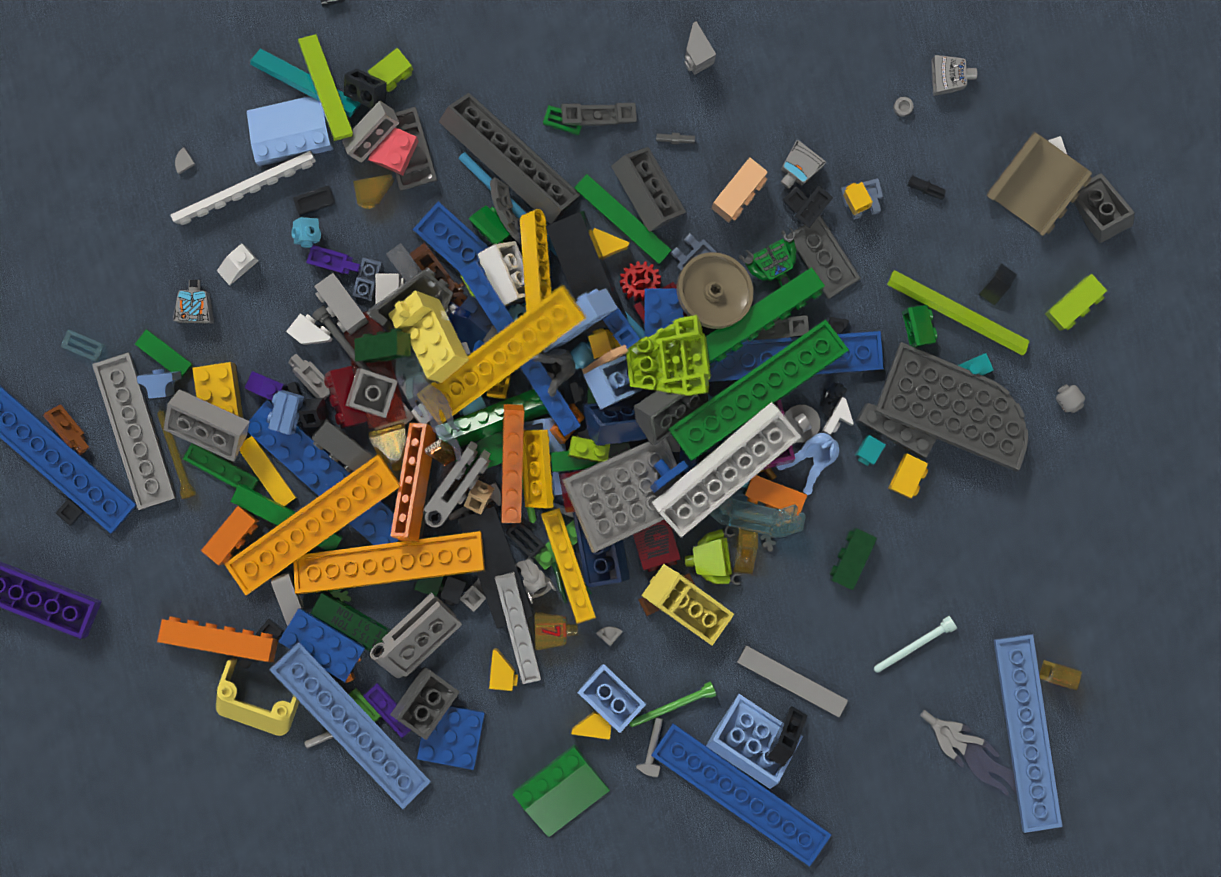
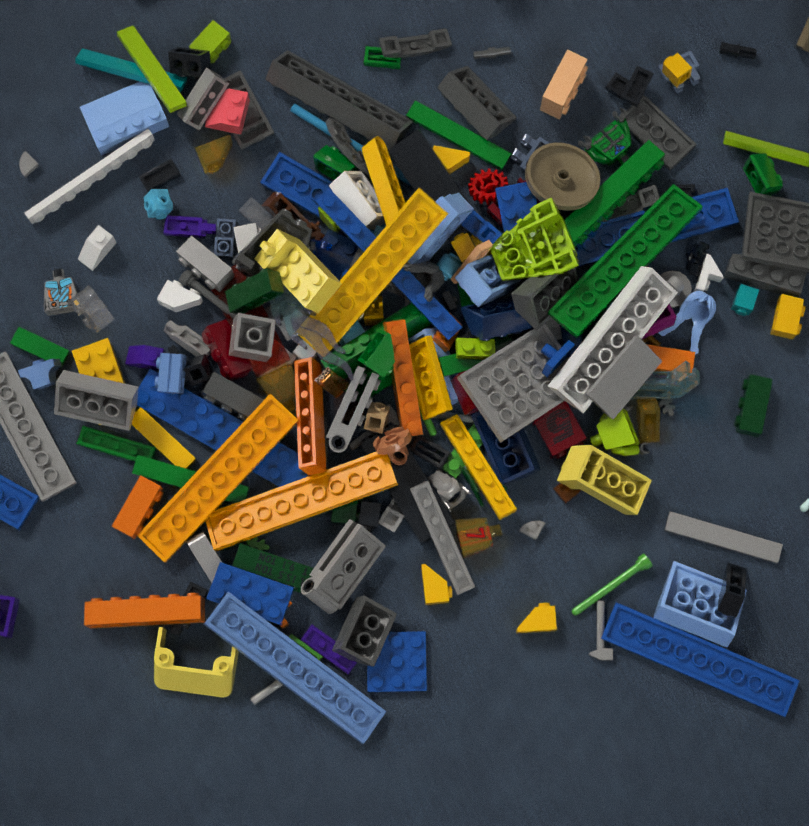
camera: 15 degrees left, 10 degrees down
(186, 490) = (85, 471): clear yellow piece -> none
(220, 329) = (92, 308): none -> clear brick
(488, 528) = (394, 441): none -> nougat tile
(490, 439) = (379, 354): none -> green slope
(561, 791) = (519, 694): green slope -> none
(611, 698) = (550, 586): light blue slope -> none
(728, 510) = (623, 377): none -> light grey tile
(800, 165) = (616, 53): light grey torso -> none

